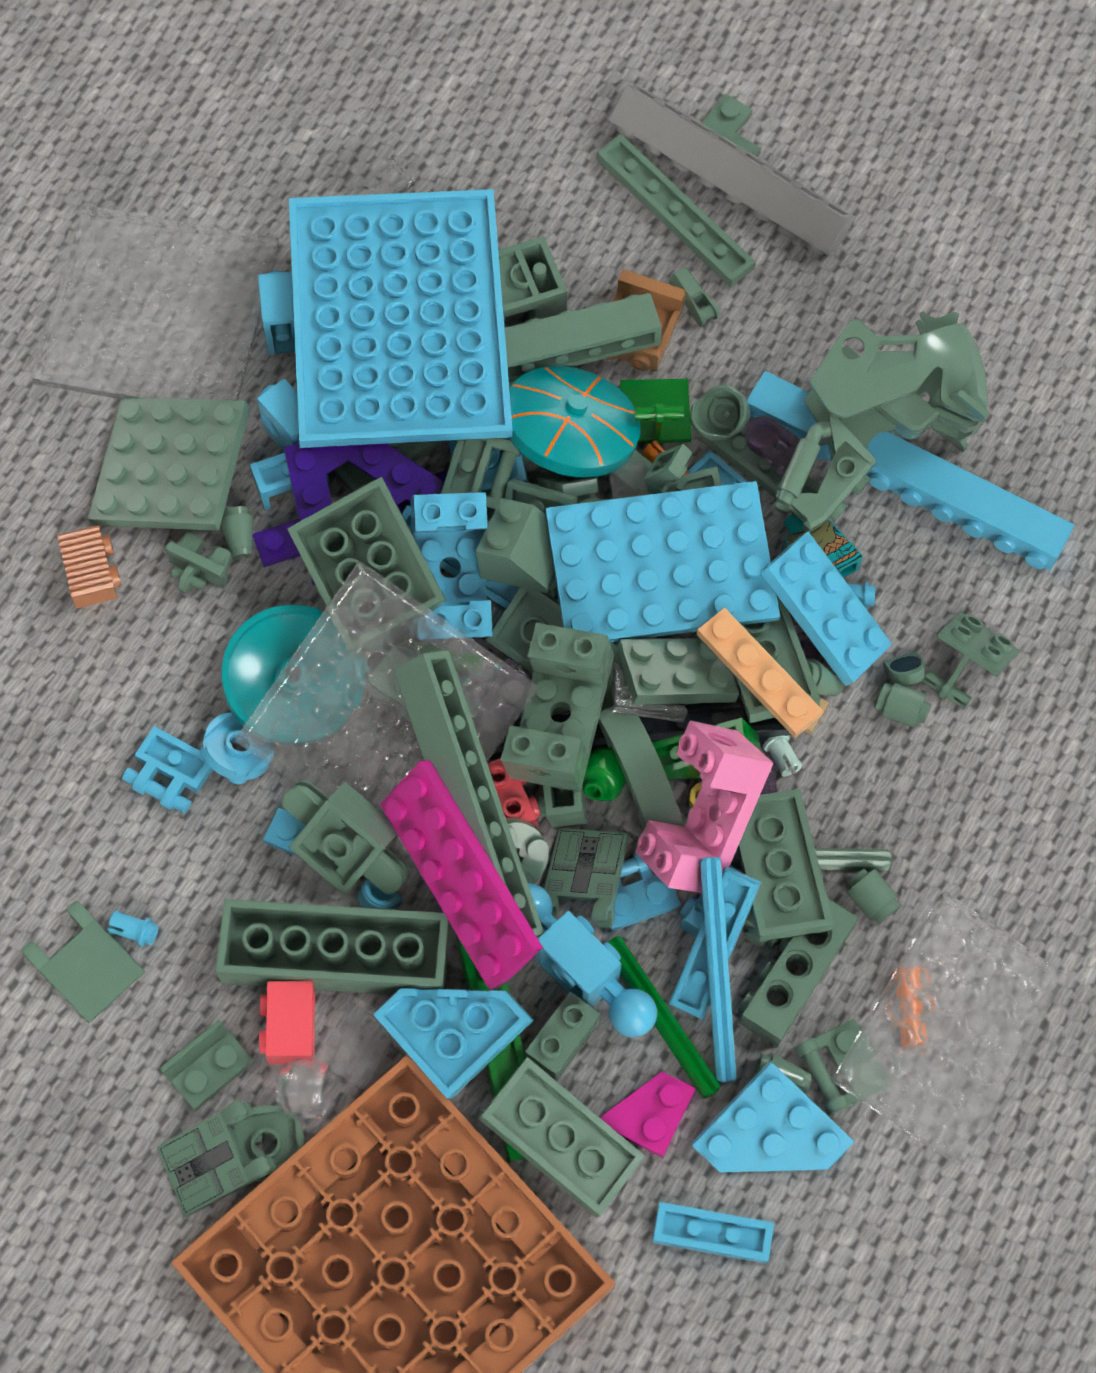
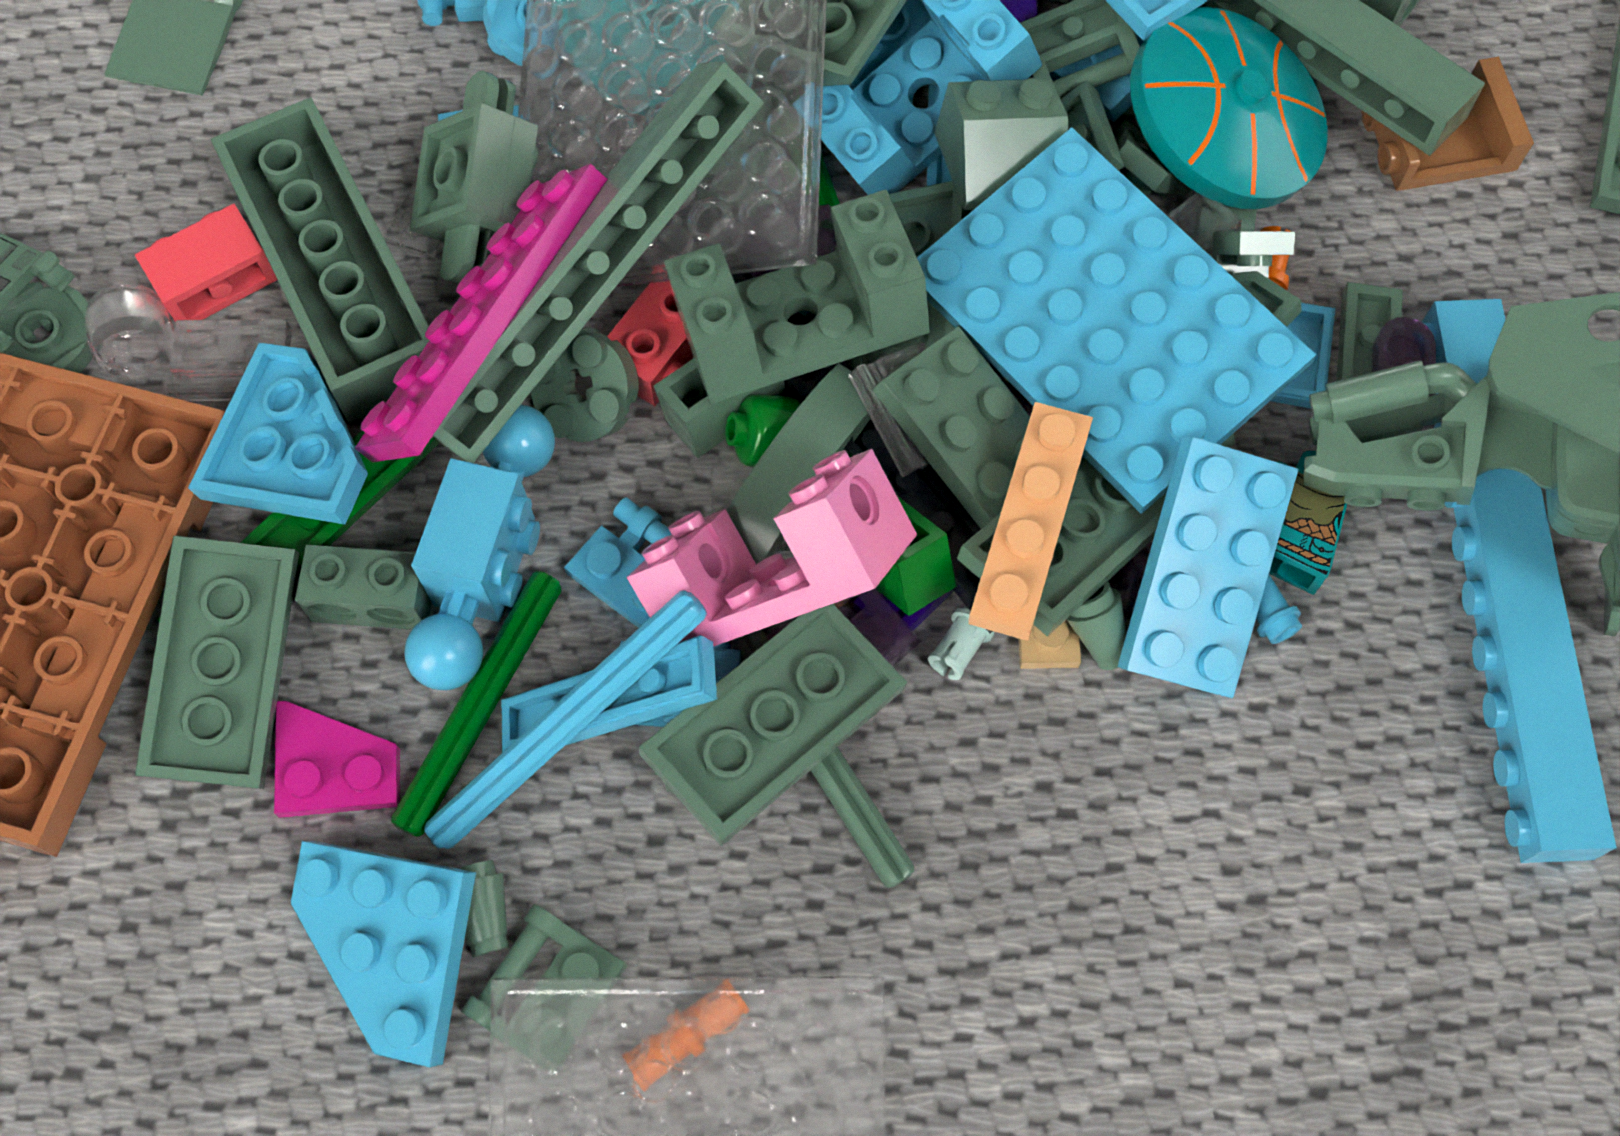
camera: 60 degrees right, 0 degrees up
(133, 928) = (244, 58): medium azure pin -> none
(207, 1065) = (113, 217): sand green plate -> none
(372, 897) = (428, 279): medium azure tile -> none
(587, 868) = (617, 491): sand green flag -> none
(661, 409) = (1339, 216): green plate -> none
(695, 294) = (1538, 169): sand green bar -> none
(708, 413) = (1380, 264): sand green helmet -> none
(713, 1232) = (195, 945): medium azure plate -> none
(775, 1021) = (554, 818): sand green brick -> none
(873, 895) = (828, 884): sand green brick -> none
(903, 704) = (1149, 764): sand green brick -> none
(905, 669) = (1207, 739): sand green tile -> none
(977, 644) = (1313, 814): sand green plate -> none

